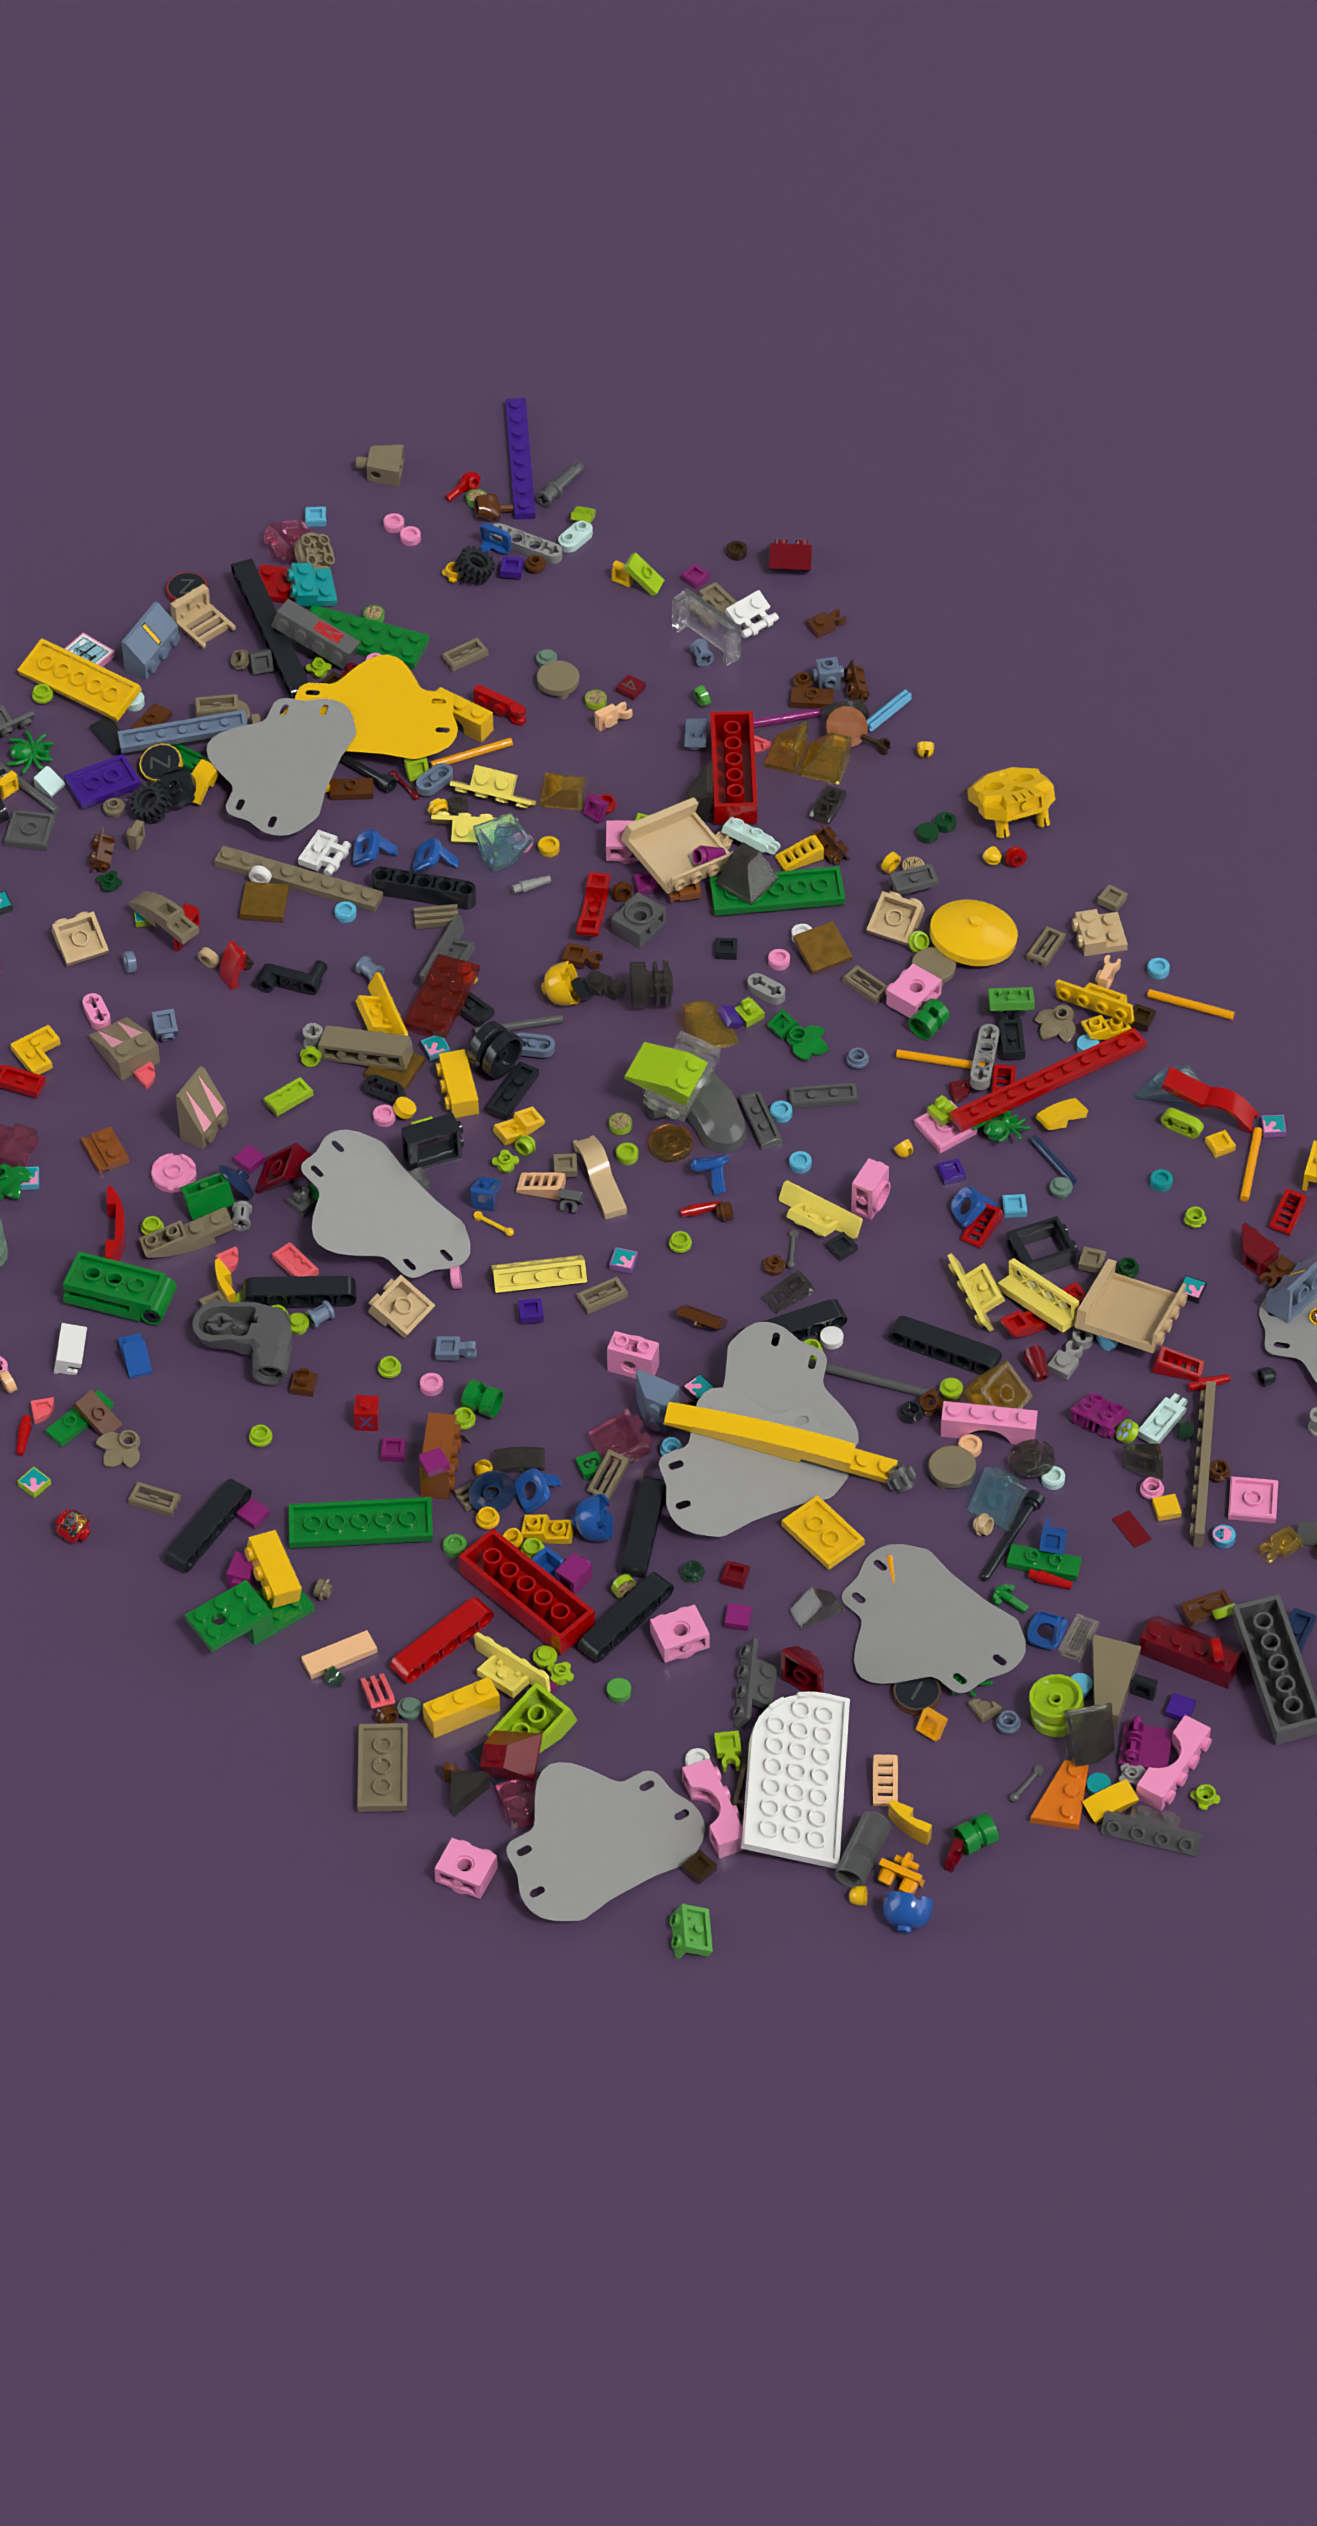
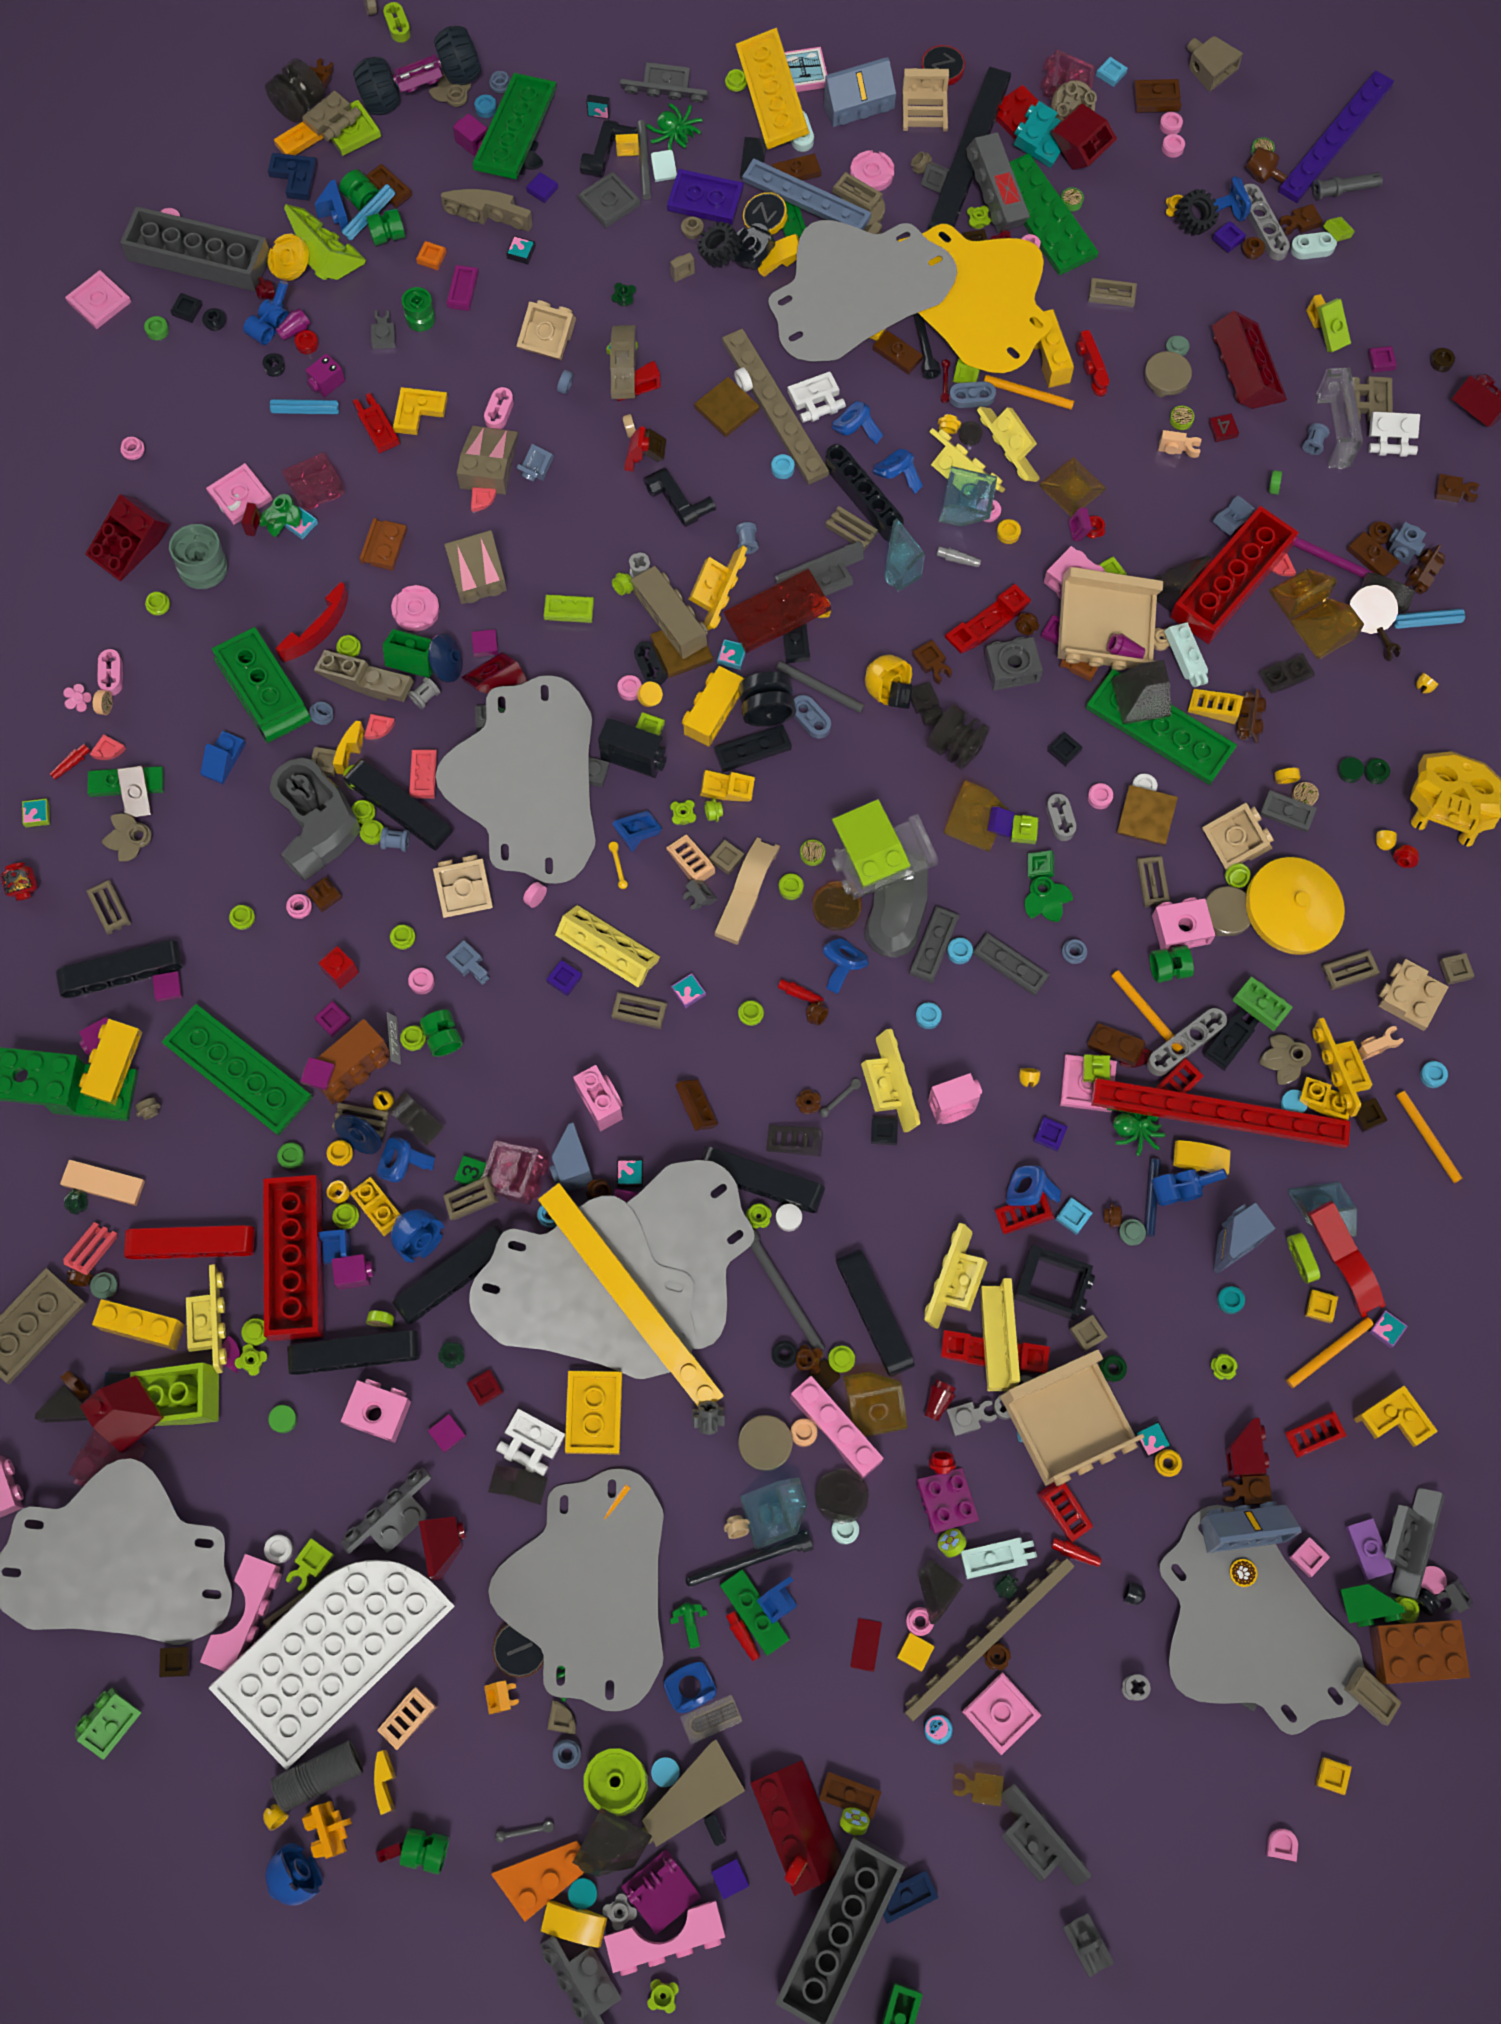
camera: 40 degrees right, 20 degrees up
(70, 1349) = (175, 709): white hinge -> none
(102, 845) = (635, 266): reddish brown hinge -> none
(180, 1277) = (321, 713): none -> sand blue plate
(207, 684) = (873, 169): none -> bright pink tile
(294, 1396) = (296, 900): none -> bright pink plate
(345, 567) = (1083, 136): none -> dark red slope
(366, 510) = (1157, 95): none -> reddish brown plate
(468, 482) = (1269, 128): red plate -> none
(495, 904) = (904, 558): none -> clear light blue slope
(551, 524) = (1303, 219): none -> reddish brown plate
(606, 635) = (1248, 361): none -> dark red slope
(798, 1572) = (536, 1435): none -> white plate
(948, 1086) = (1116, 1044): none -> reddish brown plate
(1040, 1186) = (1113, 1216): none -> reddish brown plate
(1067, 1135) = (1183, 1186): none -> blue beam
(1075, 1394) = (942, 1462): none -> red plate
(1132, 1129) = (1240, 1235): none -> sand blue slope
(1218, 1290) = (1175, 1459): none -> yellow plate

